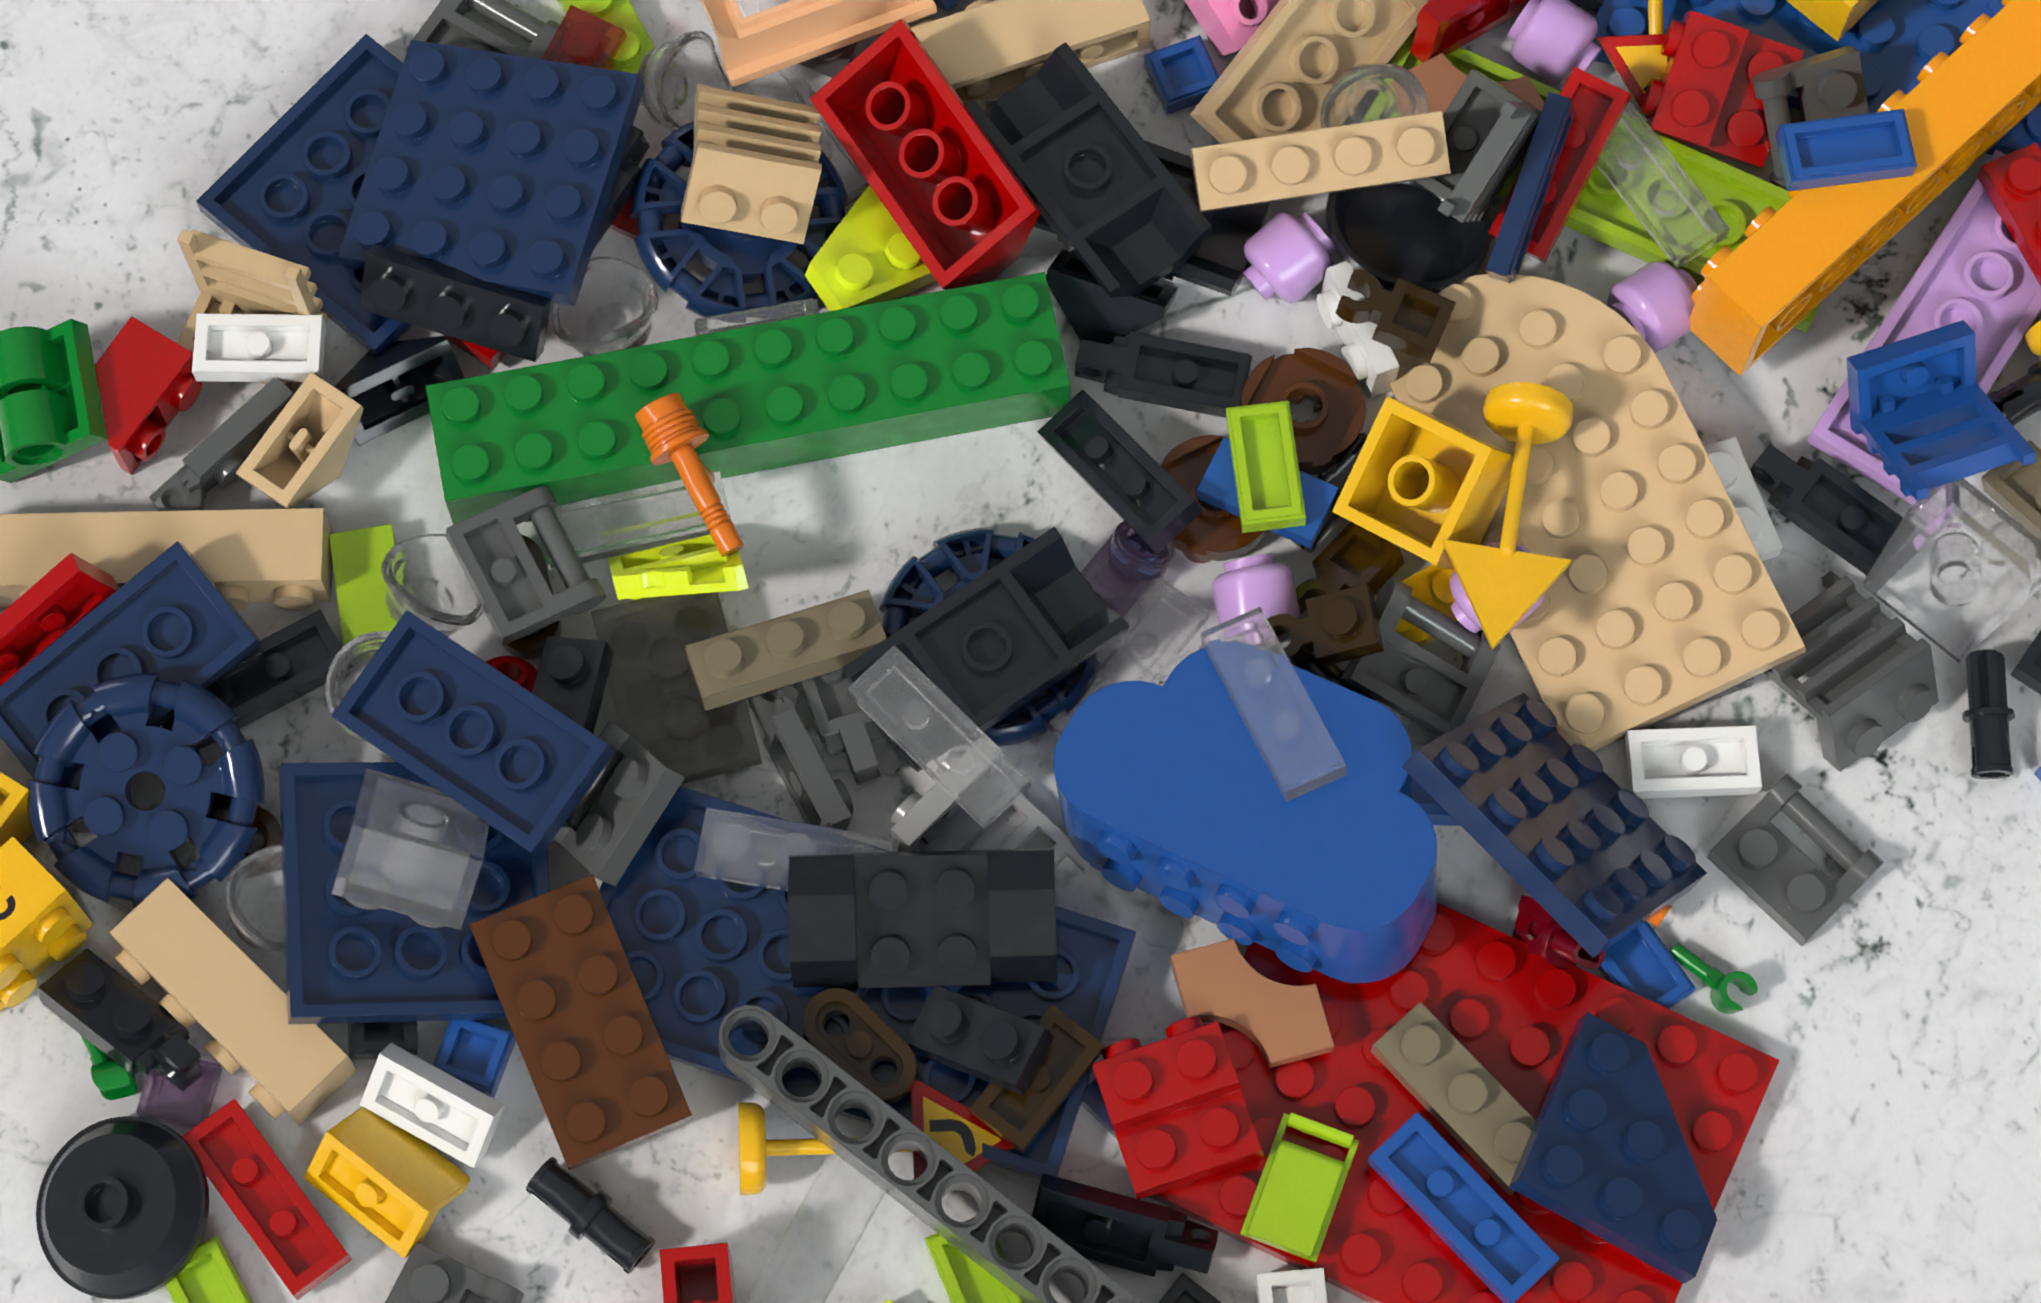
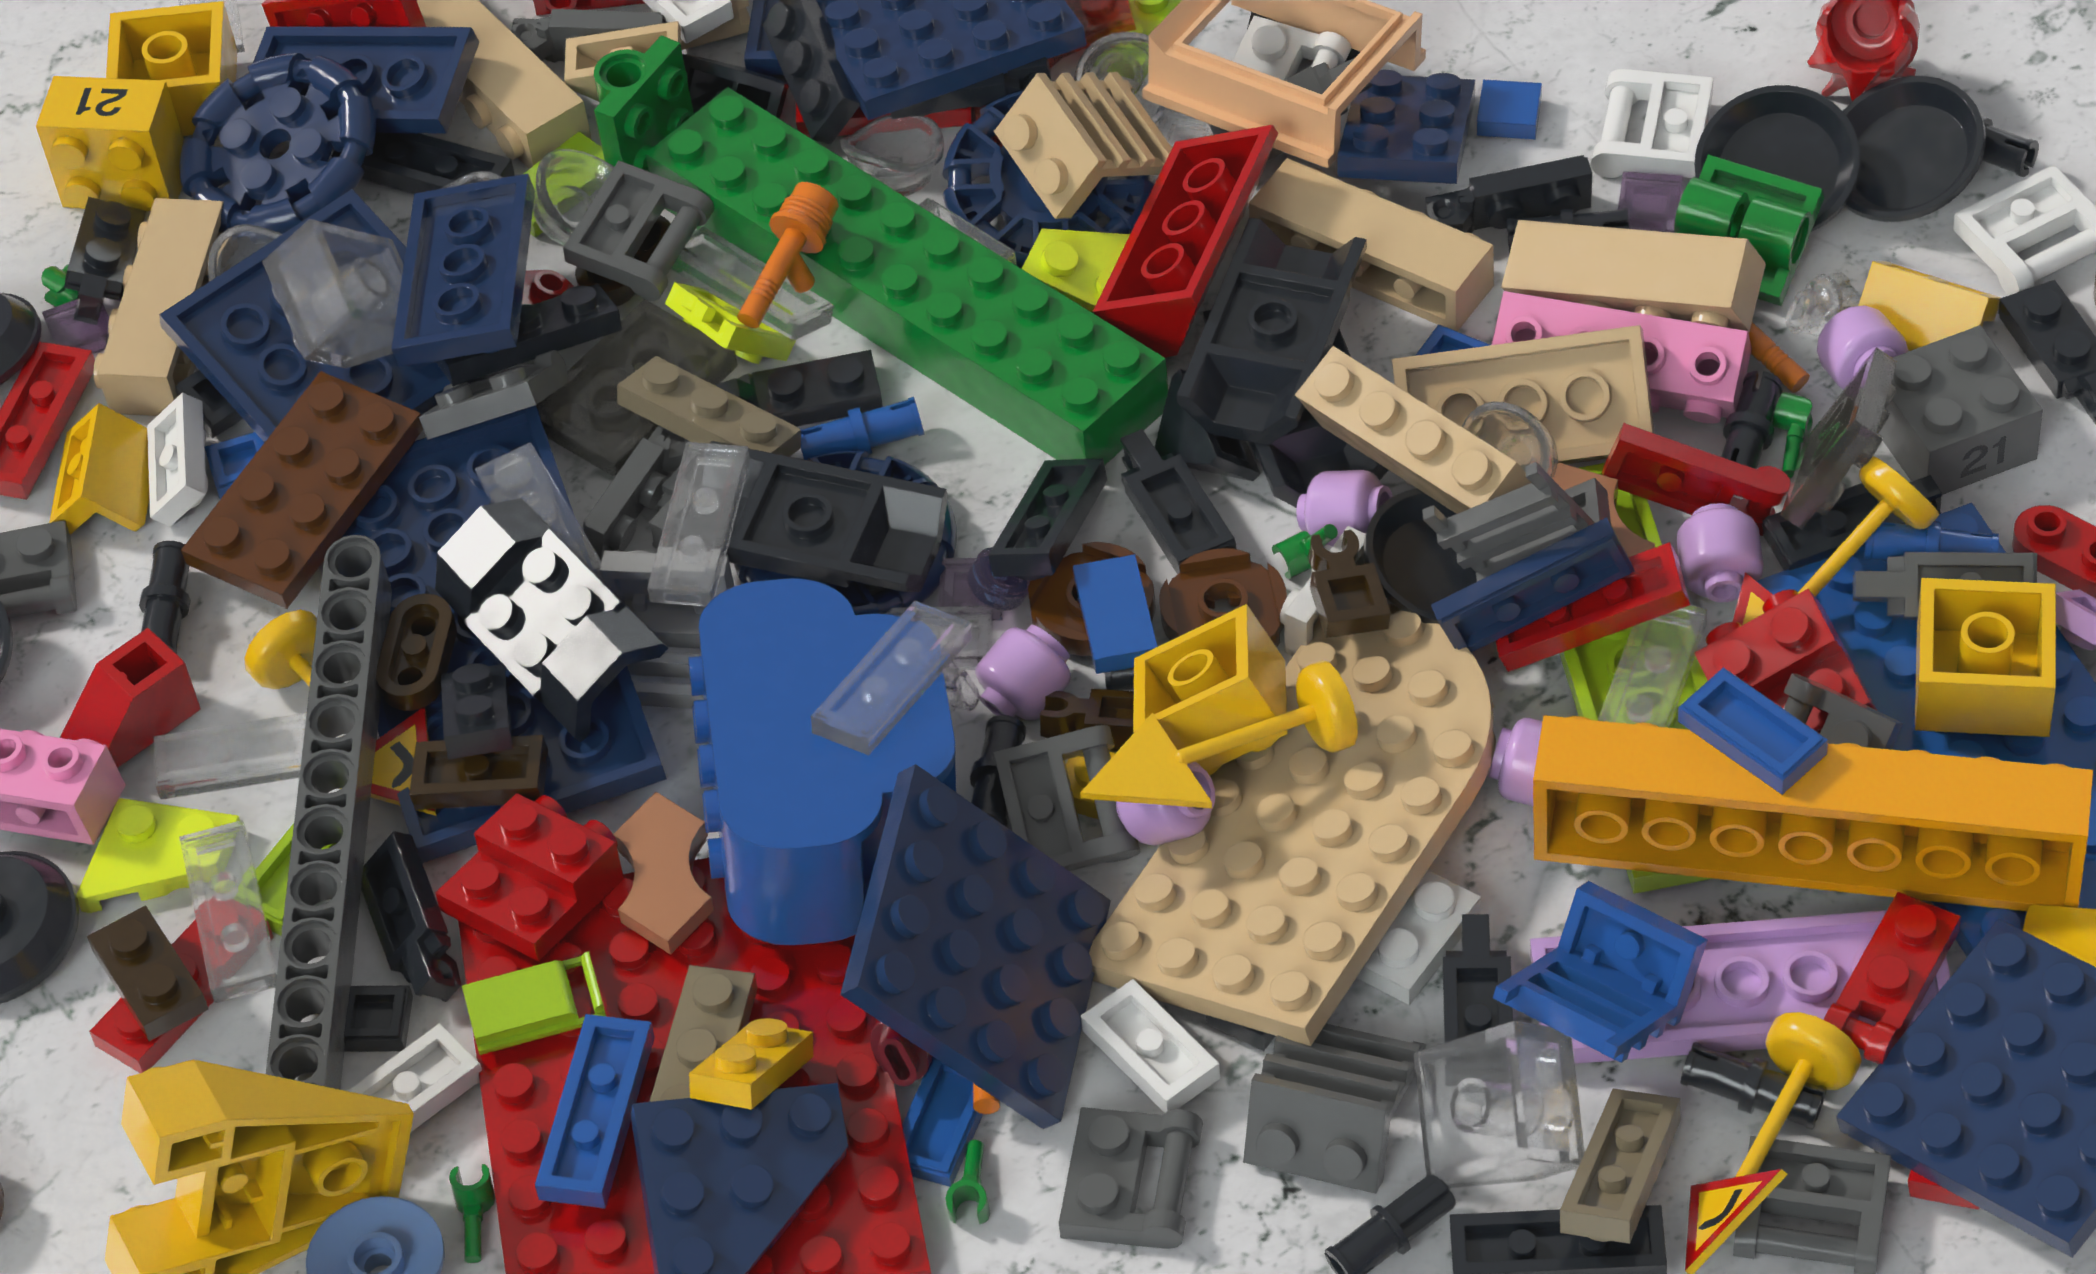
camera: 60 degrees right, 20 degrees down
(380, 471) = (640, 100): none -> green plate
(795, 553) = (812, 389): none -> black hinge
(885, 541) = (863, 430): none -> blue pin
(1265, 466) = (1128, 588): lime tile -> none
(1294, 315) = (1296, 549): none -> green hand
(1336, 629) = (1022, 714): dark brown plate -> none
(1529, 1064) = (751, 1064): none -> yellow plate

